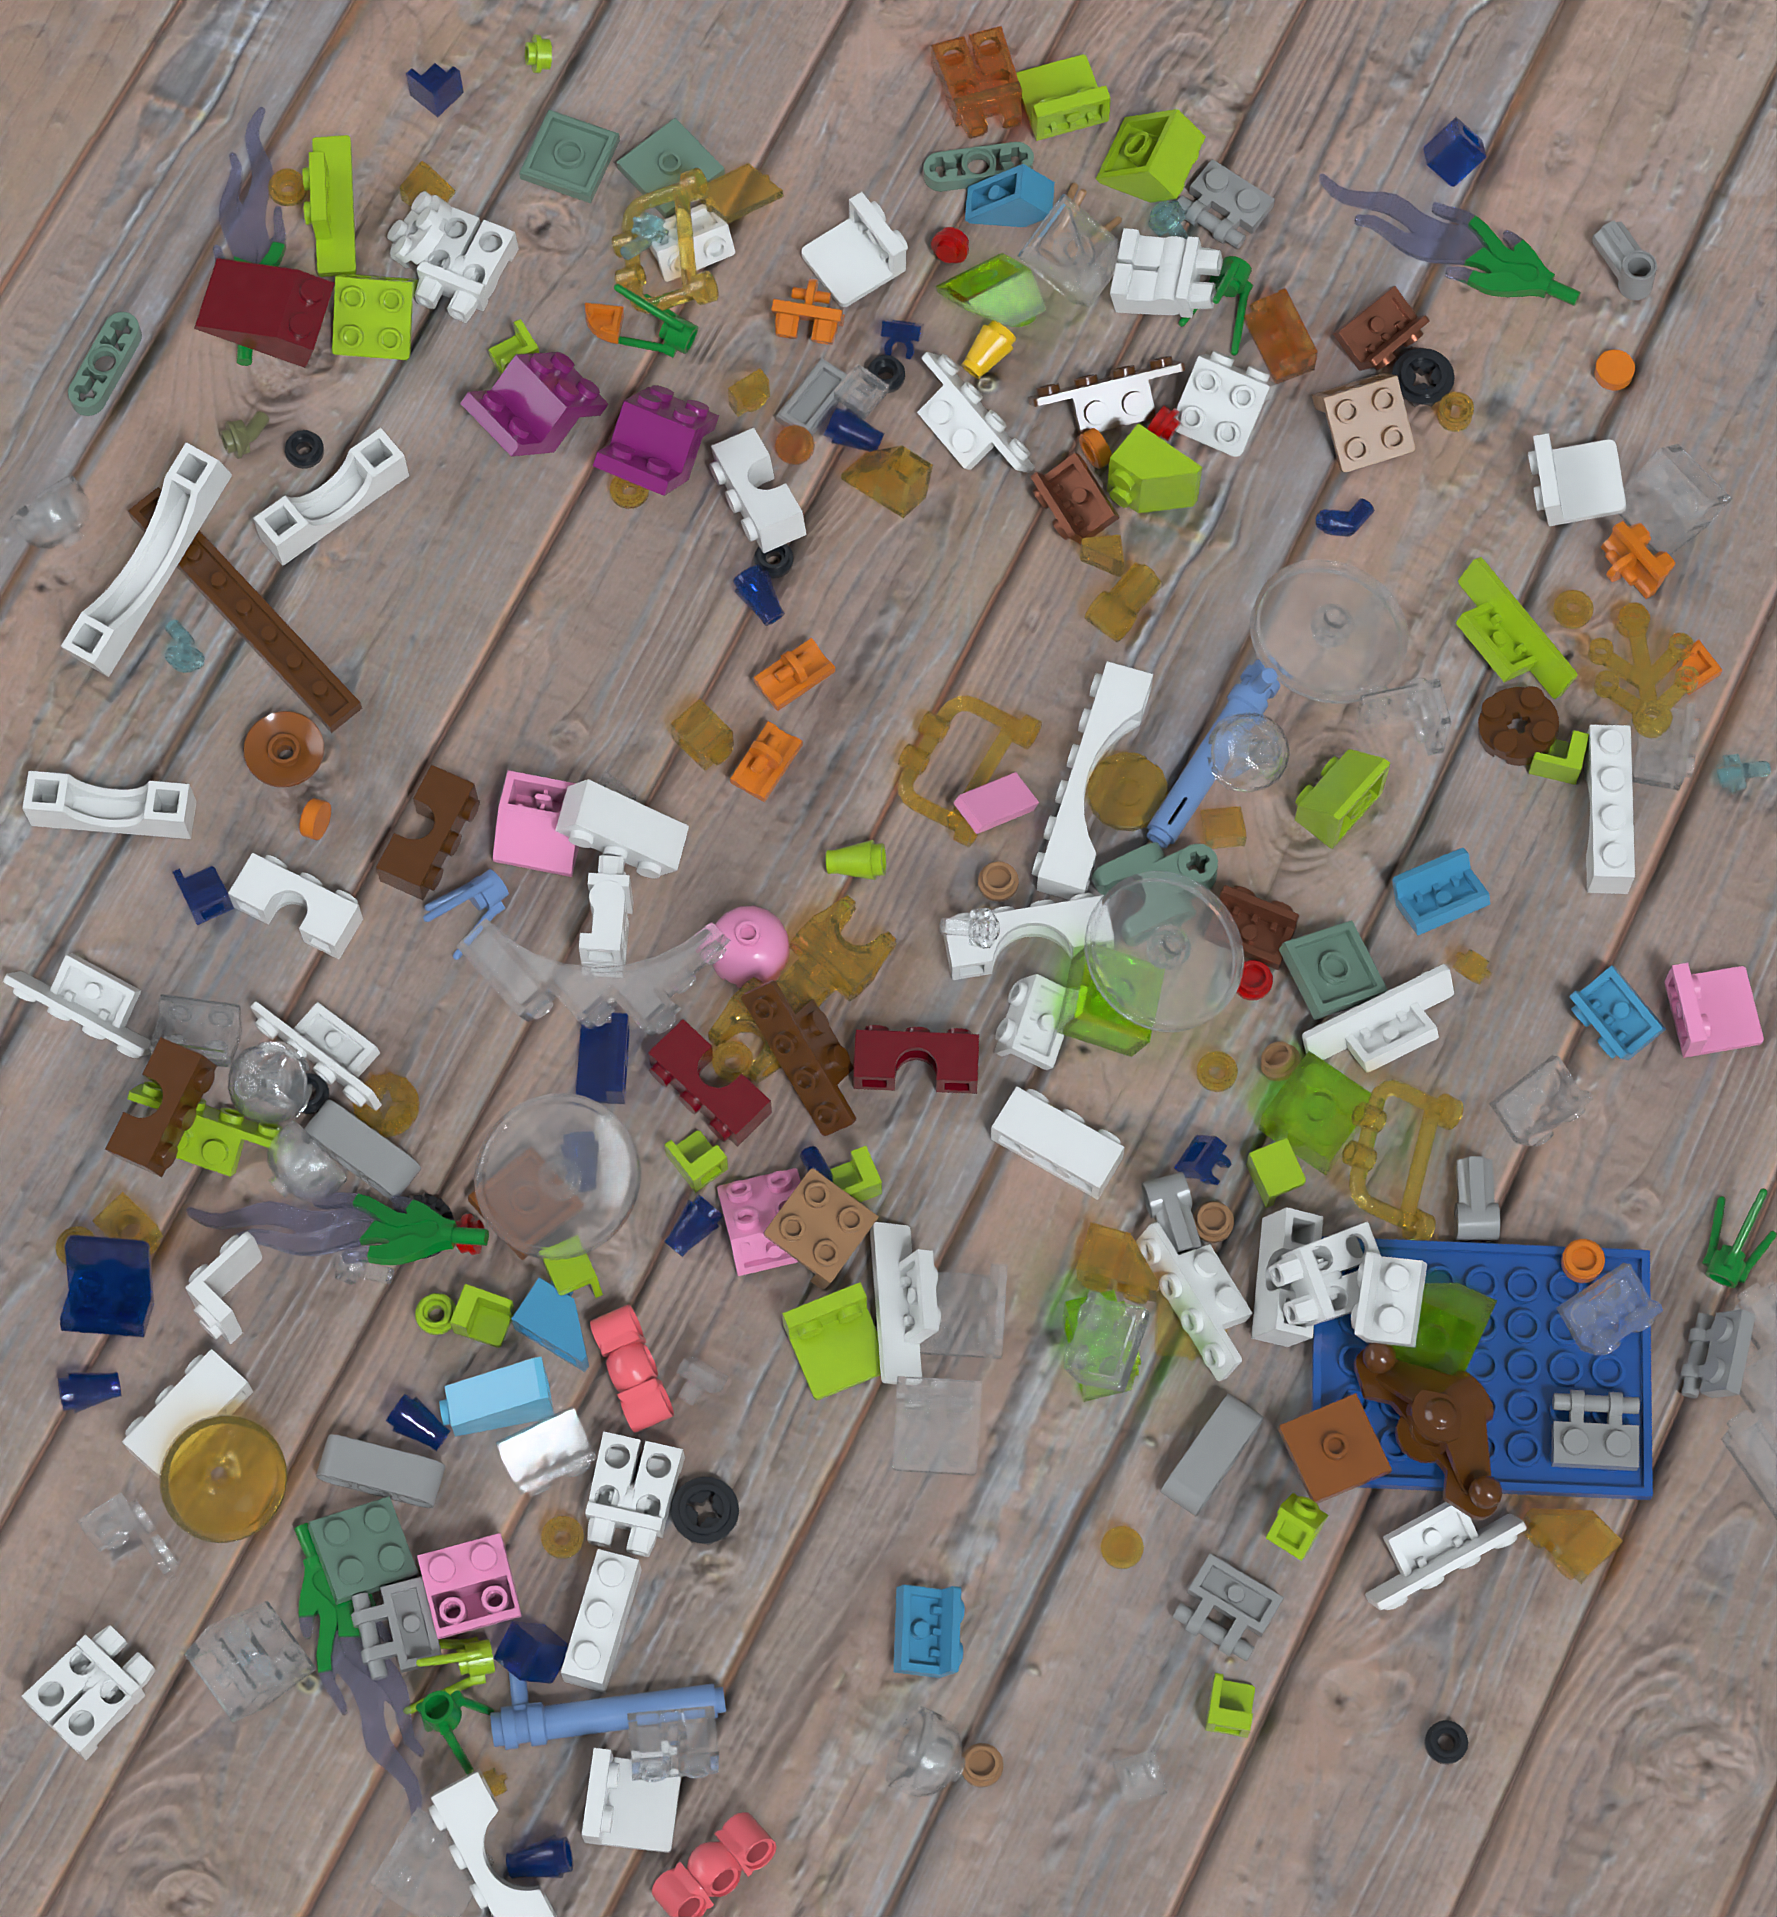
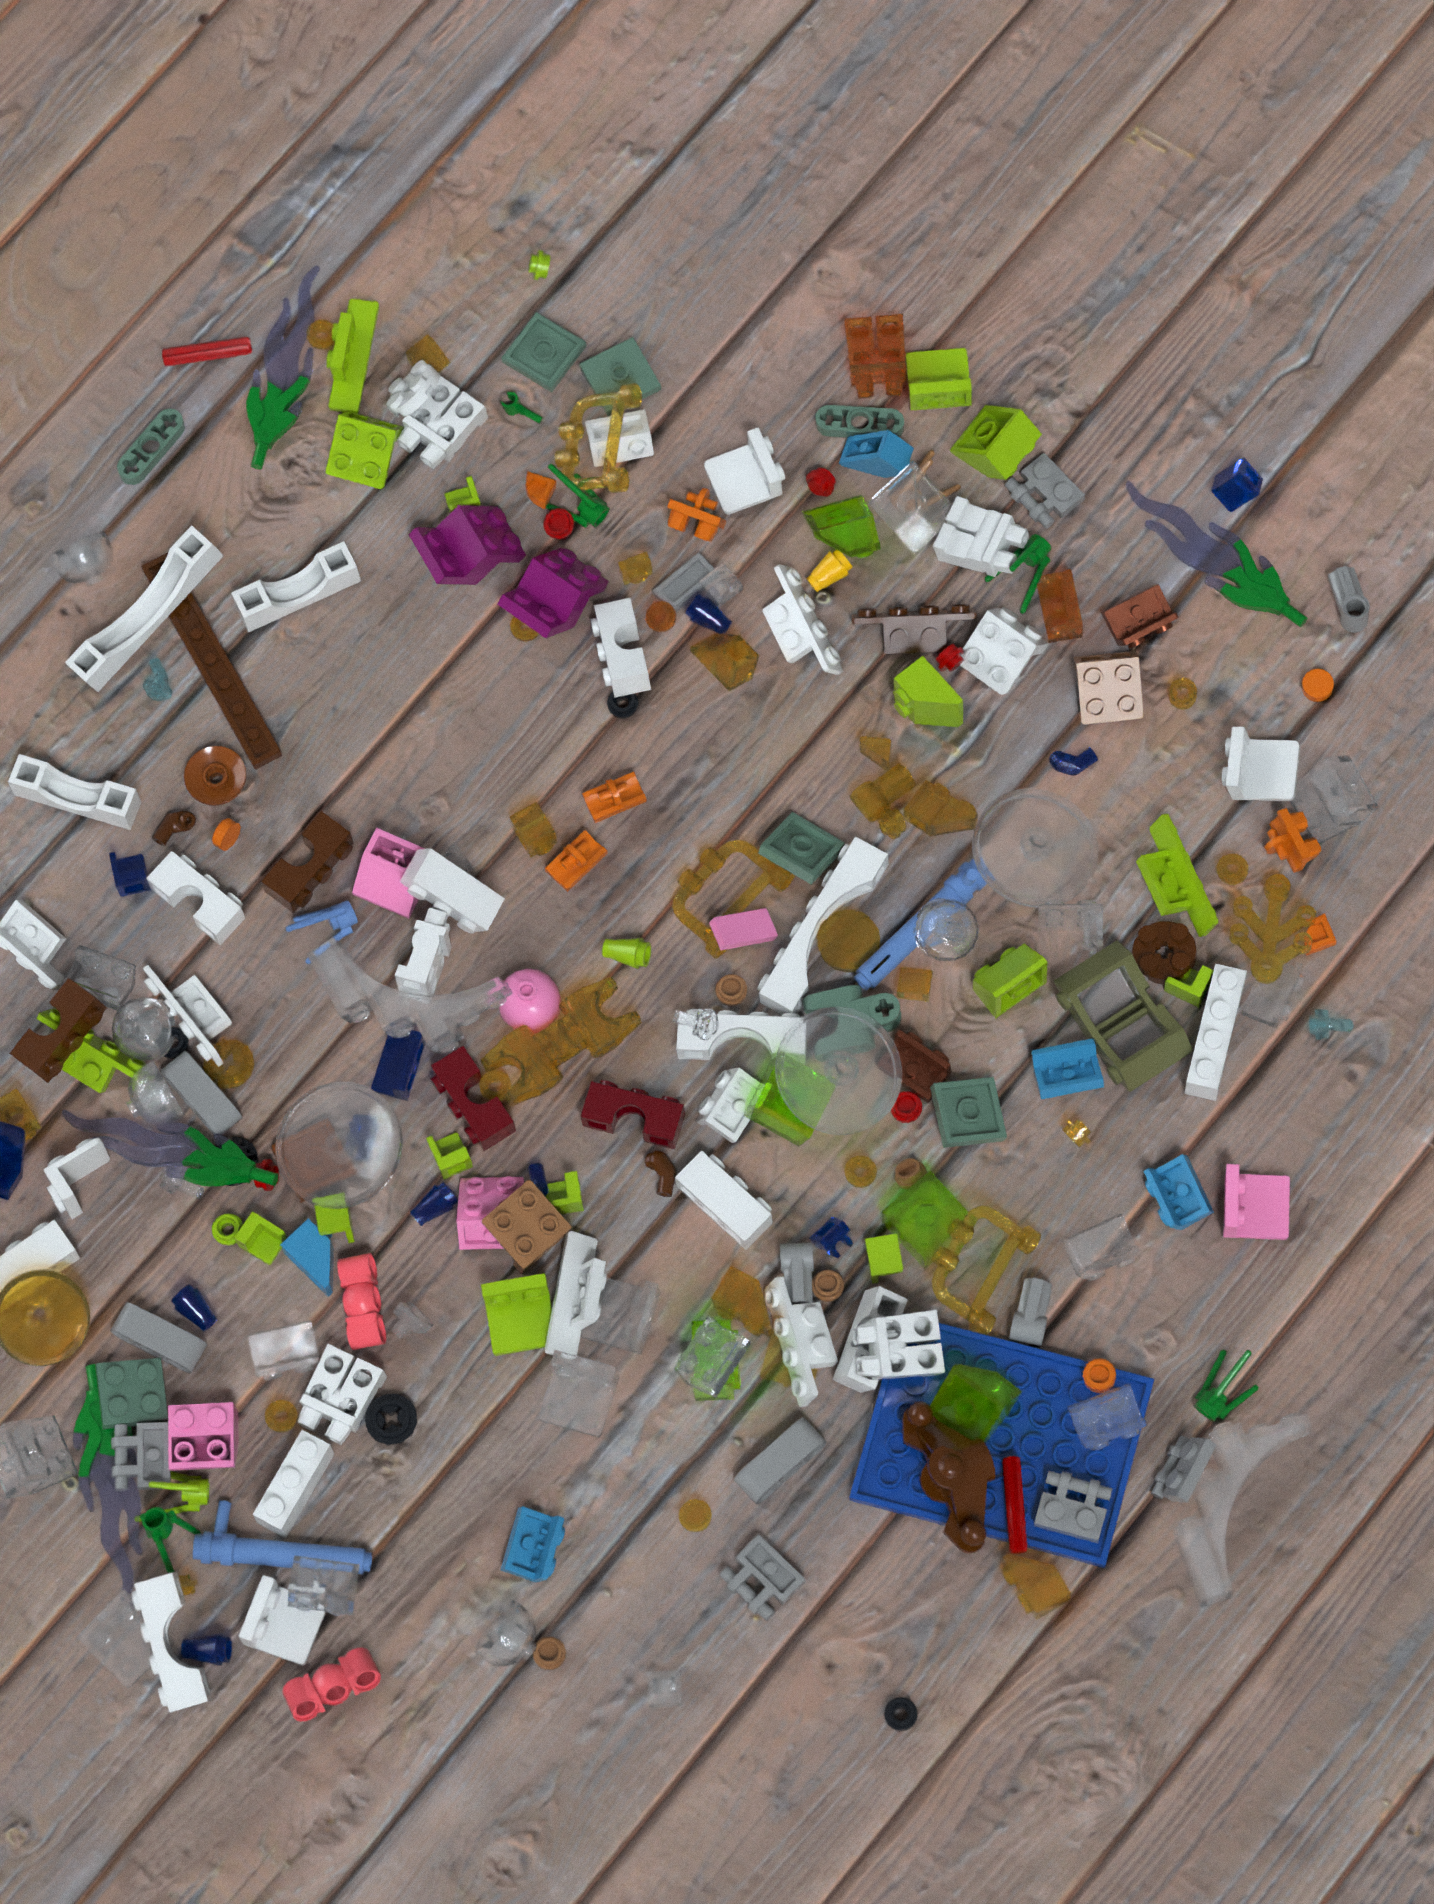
camera: 20 degrees right, 0 degrees up
(148, 235) = (207, 351): none -> red axle
(237, 436) = (237, 525): olive plate -> none
(244, 820) = (172, 824): none -> reddish brown arm
(265, 308) = (280, 428): dark red slope -> none
(303, 439) = (282, 537): black plate -> none
(435, 87) = (453, 277): clear blue panel -> none
(498, 1398) = (258, 1302): medium azure slope -> none
(532, 1652) = (236, 1495): clear blue panel -> none
(551, 230) = (516, 408): none -> green hand
(639, 358) = (558, 523): none -> red plate
(648, 229) = (587, 425): clear light blue plate -> none
(740, 193) = (667, 408): clear yellow piece -> none
(758, 593) = (604, 728): clear blue cone -> none
(806, 1053) = (549, 1090): reddish brown bracket -> none
(891, 365) = (750, 567): black plate -> none
(901, 332) = (765, 543): clear blue tile -> none
(973, 1120) = (665, 1169): none -> reddish brown arm
(1043, 689) = (801, 848): none -> sand green plate
(1074, 499) = (864, 703): copper bracket -> none
(1095, 448) = (891, 665): orange tile -> none
(1145, 637) = (892, 823): none -> clear yellow plate
(1168, 218) = (996, 493): clear light blue plate -> none
(1200, 612) = (938, 812): none -> clear yellow slope
(1230, 1707) = (744, 1651): lime panel -> none
(1297, 1525) = (829, 1527): lime bracket -> none
(1334, 1449) = (871, 1476): dark orange plate -> none
(1386, 1024) = (997, 1163): white bracket -> none
(1389, 1300) = (934, 1372): white bracket -> none
(1422, 362) = (1166, 648): black gear -> none
(1436, 1546) = (929, 1566): white bracket -> none
(1476, 804) = (1116, 1011): none -> olive window
(1522, 1445) = (1014, 1505): none -> red axle

